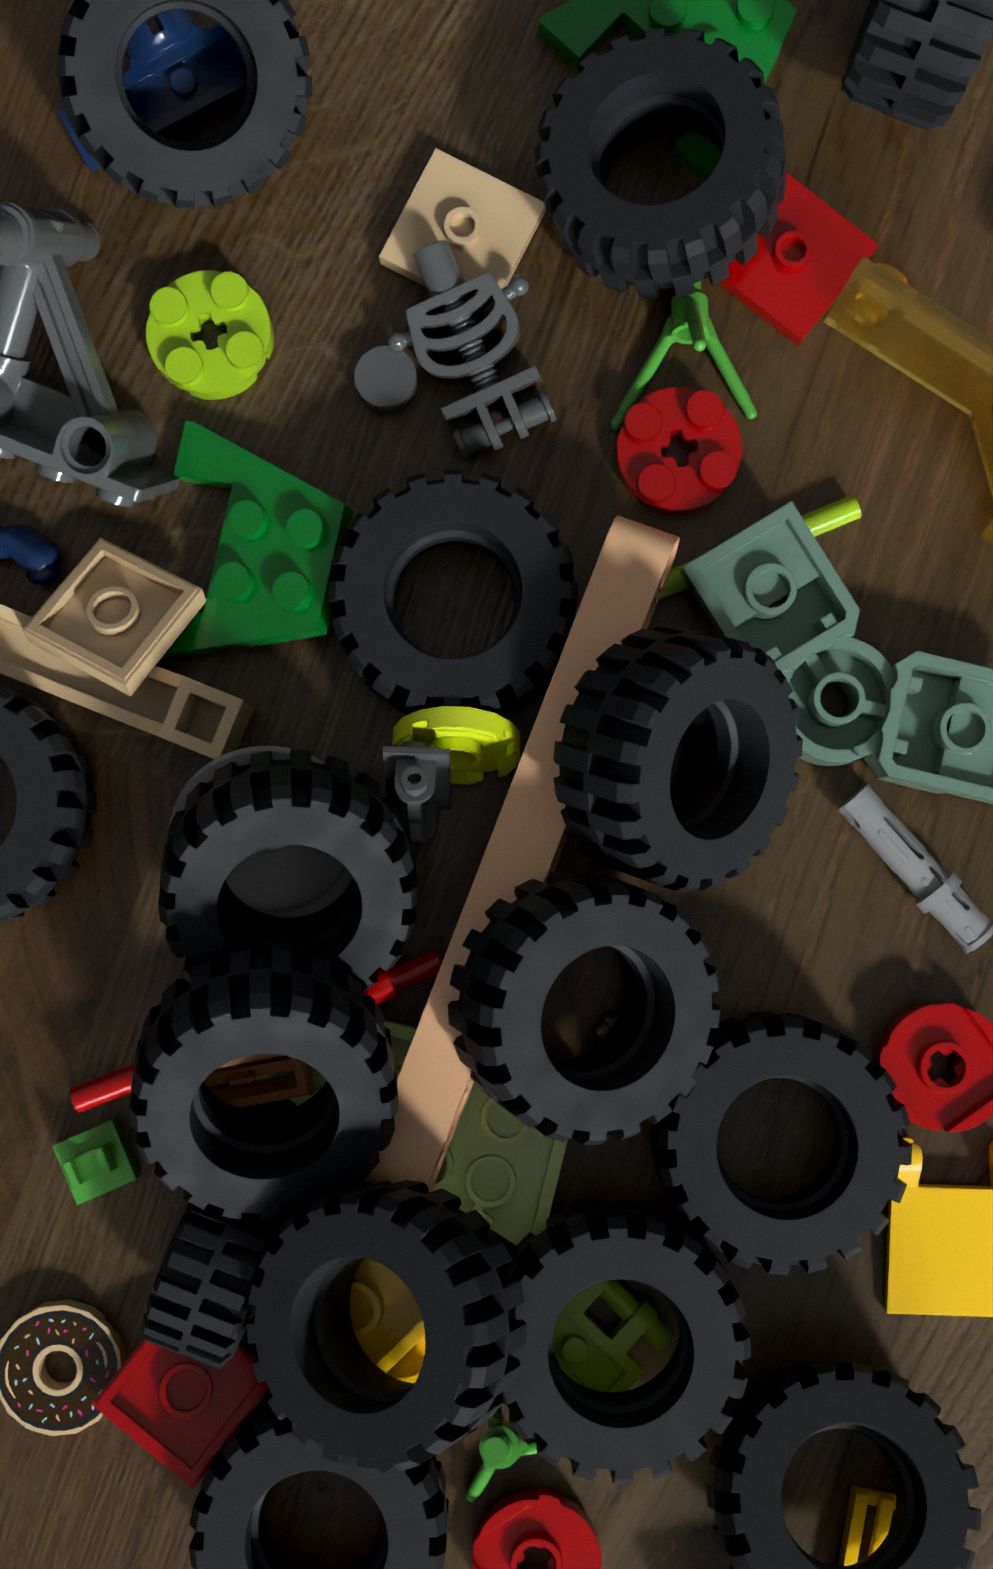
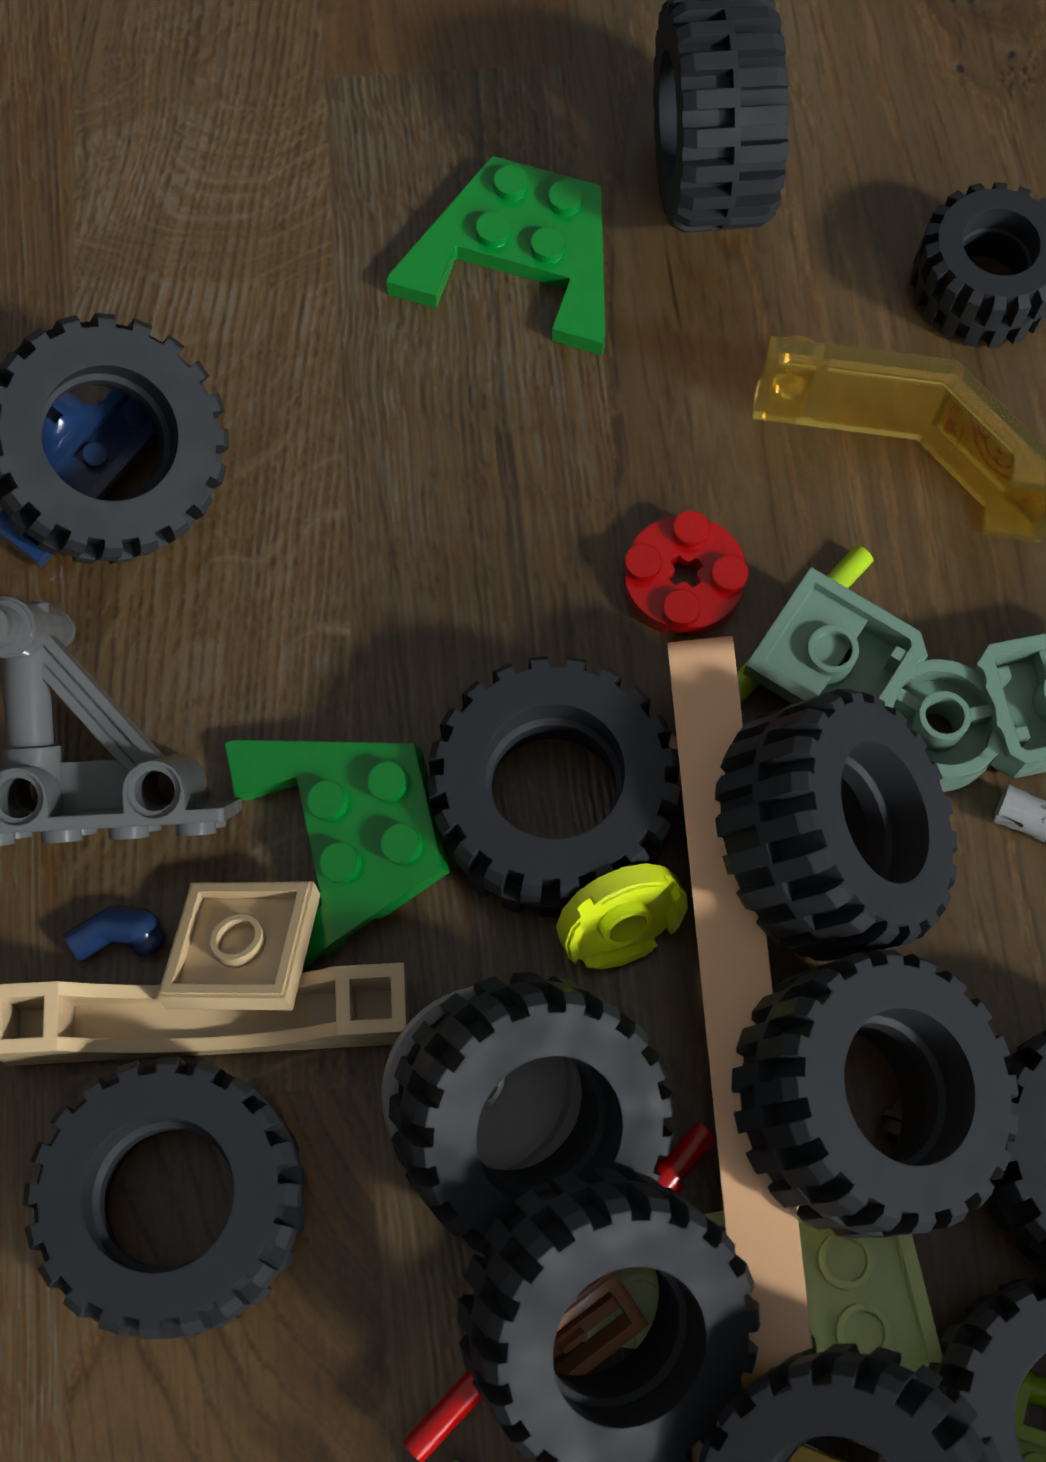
camera: 25 degrees left, 15 degrees down
(178, 315) = (212, 624): lime plate -> none
(385, 379) = (392, 628): dark grey tile -> none
(419, 785) = (603, 962): dark grey hinge -> none
(449, 293) = (420, 528): dark grey torso -> none
(473, 211) = (402, 478): tan plate -> none
(648, 89) = (538, 277): black tyre -> none
(686, 325) = (638, 468): bright green plant -> none
(799, 263) = (696, 378): red plate -> none

